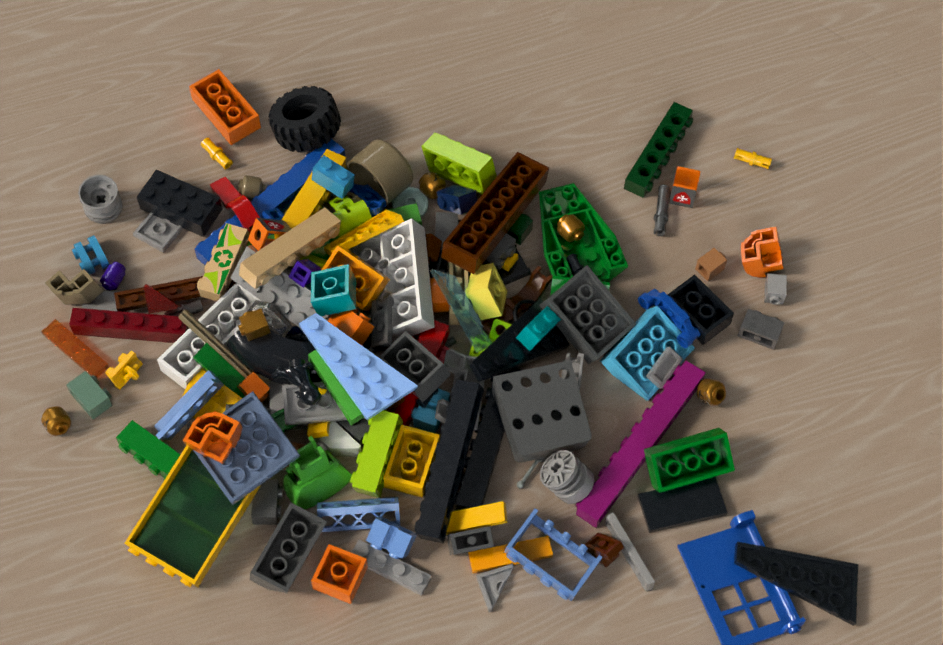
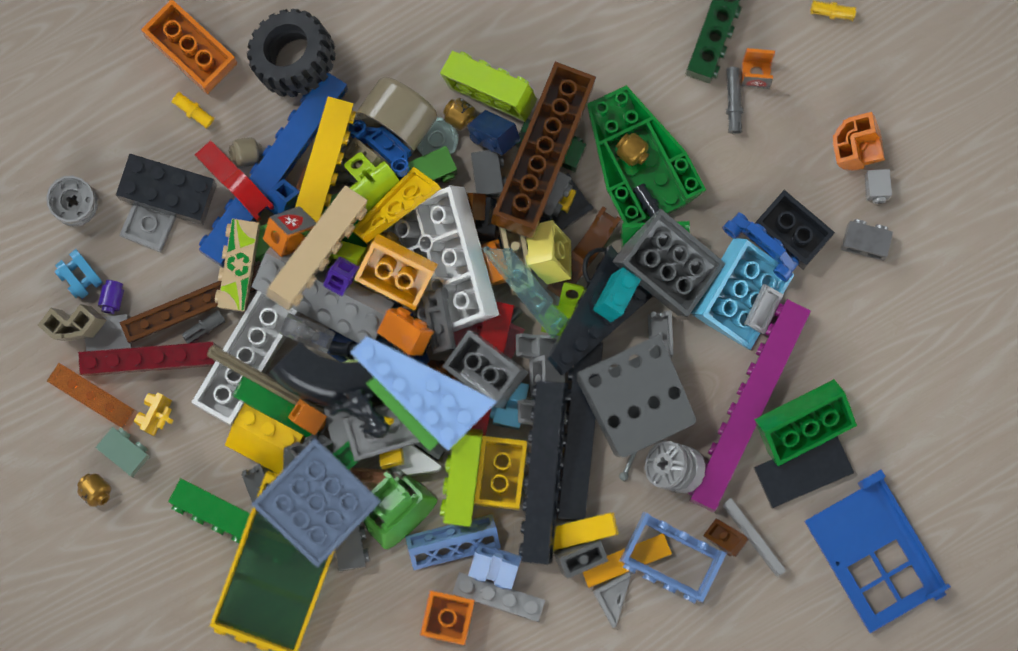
camera: 10 degrees left, 20 degrees up
(156, 301) = (174, 327): clear red slope -> none
(188, 406) = (239, 451): medium blue fence -> none
(213, 435) = (284, 503): orange brick -> none
(253, 324) = (296, 355): pearl gold brick -> none
(287, 549) = (386, 600): dark grey slope -> none
(332, 177) = (345, 139): dark azure brick -> none
(333, 290) = (379, 300): teal brick -> none
(711, 264) = (801, 164): medium nougat brick -> none
(711, 391) = (820, 331): pearl gold head -> none
(814, 579) = (954, 536): black wing -> none

